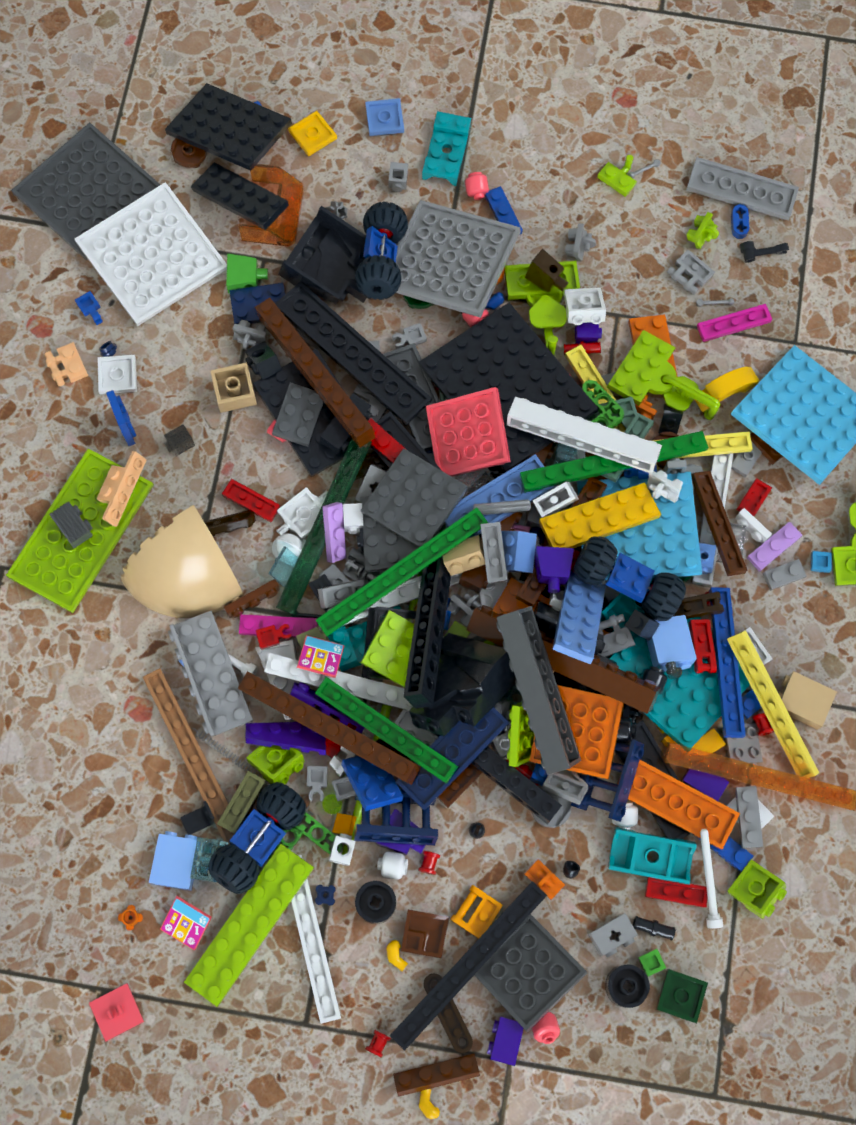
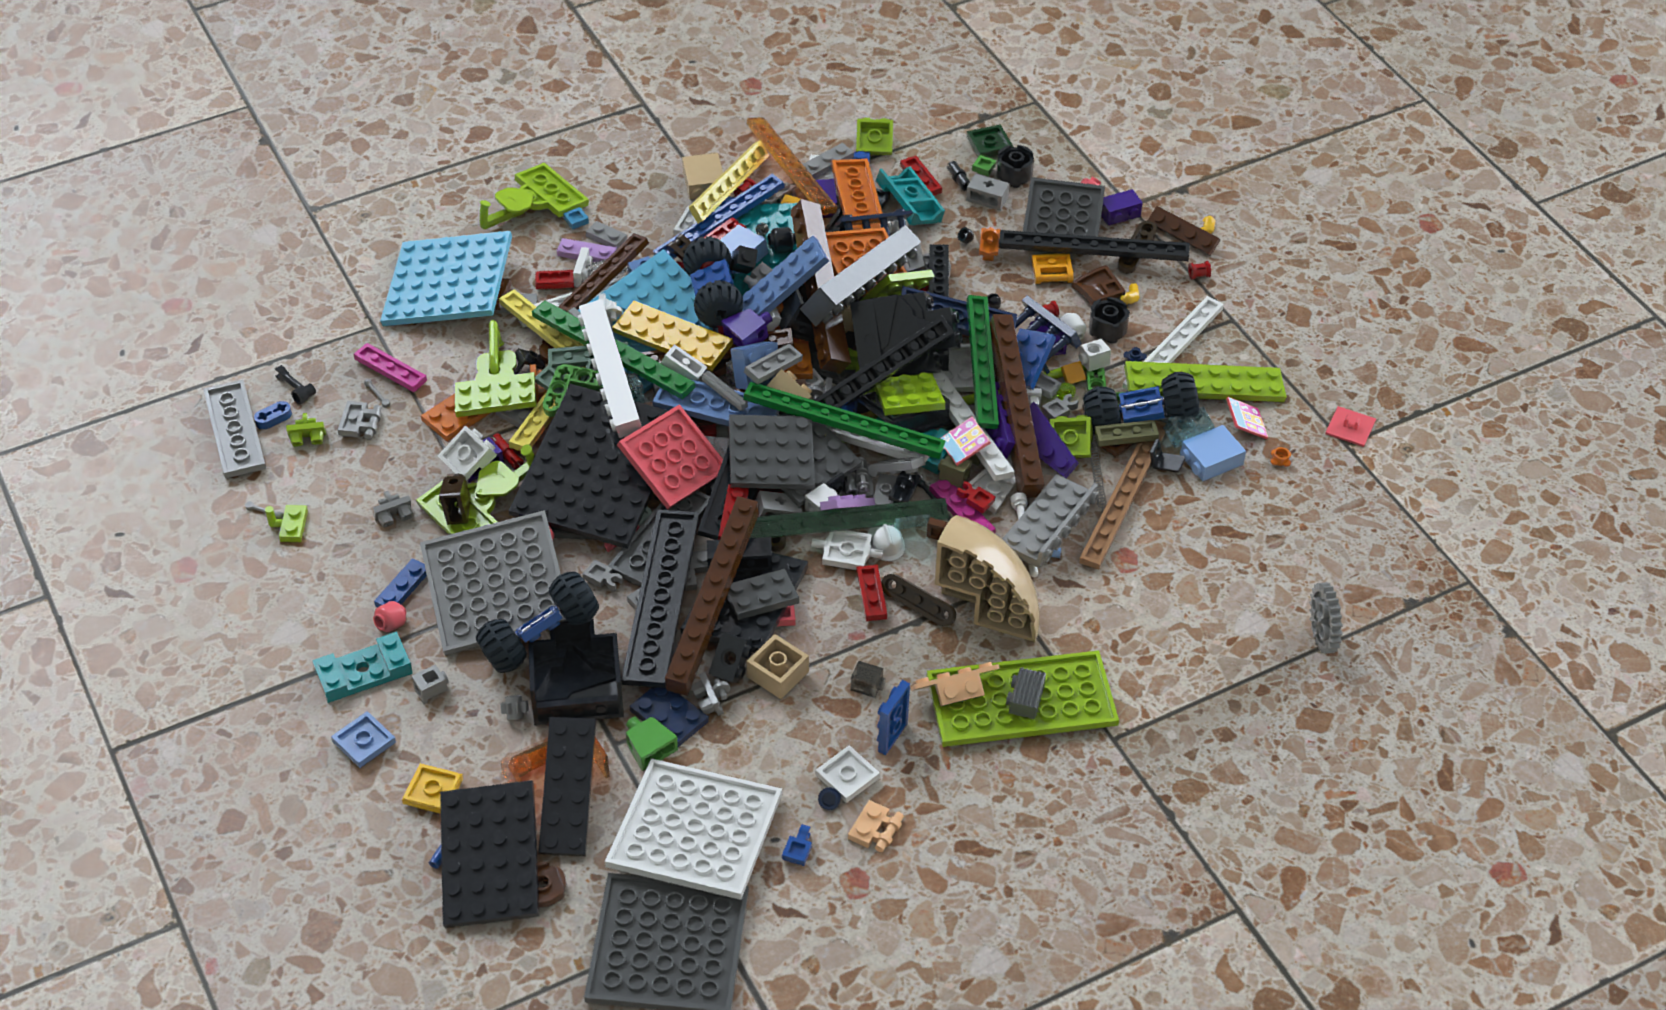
camera: 125 degrees left, 25 degrees down
(714, 919) = (919, 149): white piece -> none
(730, 383) = (462, 330): yellow arch -> none

